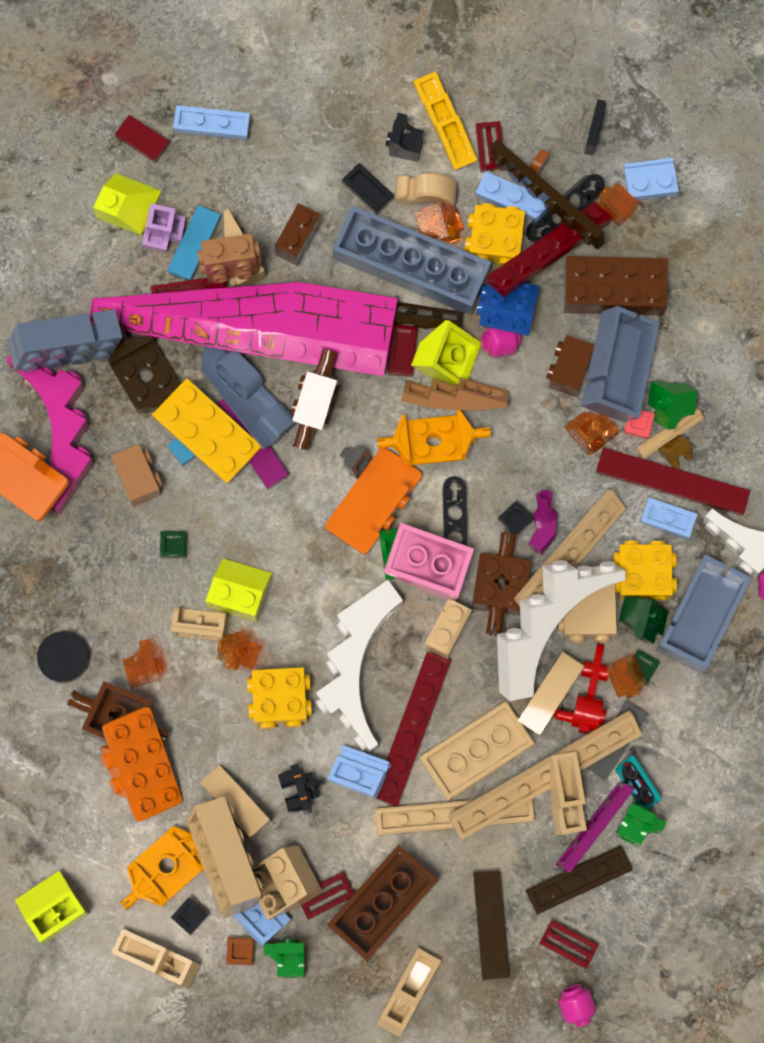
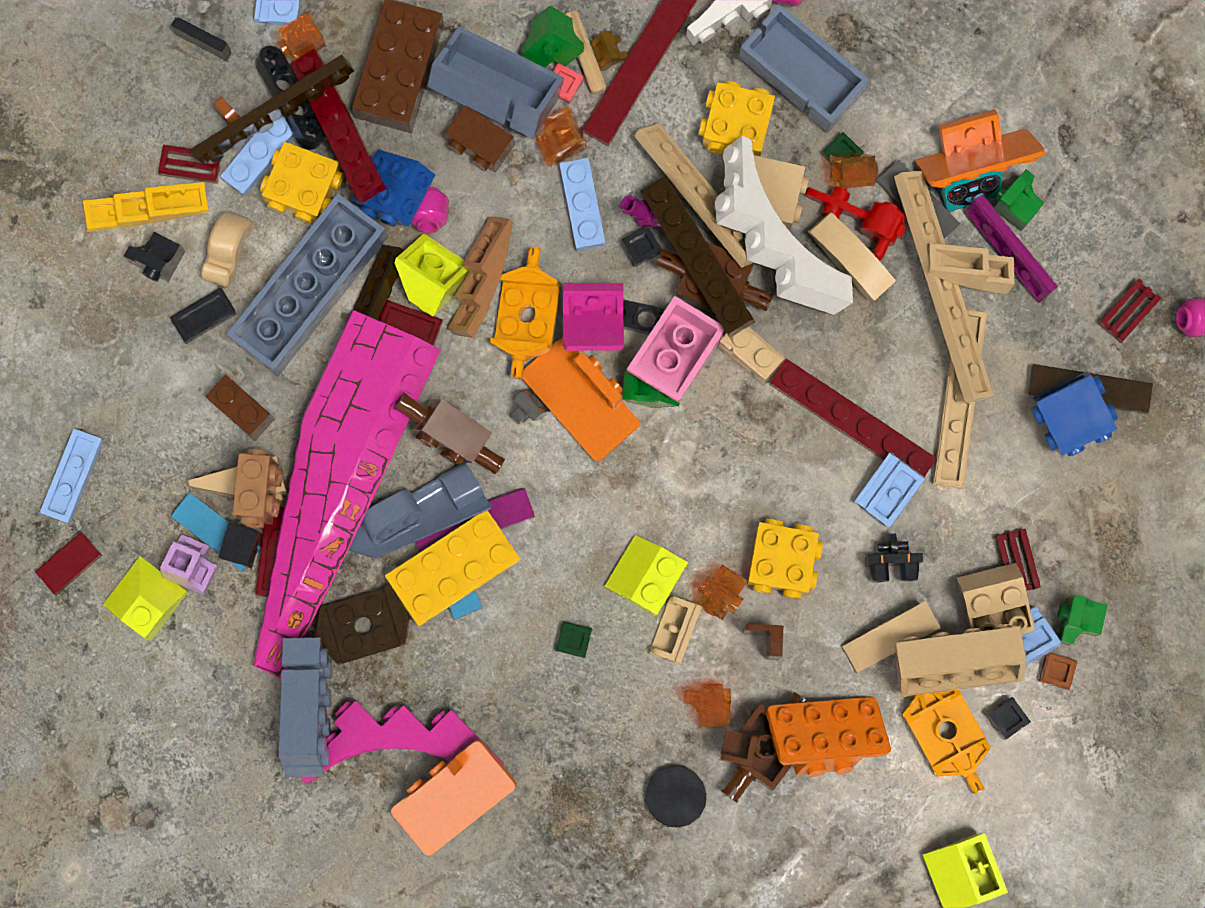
camera: 75 degrees left, 5 degrees up
(107, 690) = (738, 748): none -> reddish brown panel
(136, 475) = (482, 662): medium nougat brick -> none
(155, 959) = (1047, 767): tan slope -> none
(184, 262) = (240, 545): none -> black panel
(207, 702) = (774, 638): none -> reddish brown panel
(361, 624) = (797, 485): white arch -> none
(382, 903) = (1045, 499): reddish brown brick -> none
(408, 992) = (1146, 495): tan slope -> none
(440, 221) = (268, 241): clear orange brick -> none
(440, 490) = (593, 316): none -> dark pink bracket
(461, 912) = (1075, 414): none -> blue brick
(476, 751) = (893, 356): tan tile -> none
(513, 560) = (697, 257): none -> dark brown plate
(539, 463) = (582, 204): none -> light blue plate
(579, 881) = (1067, 297): dark brown tile -> none
(644, 617) = (791, 133): dark green brick -> none
(668, 518) = (682, 79): light blue plate -> none
(673, 776) = (977, 147): none -> orange bracket

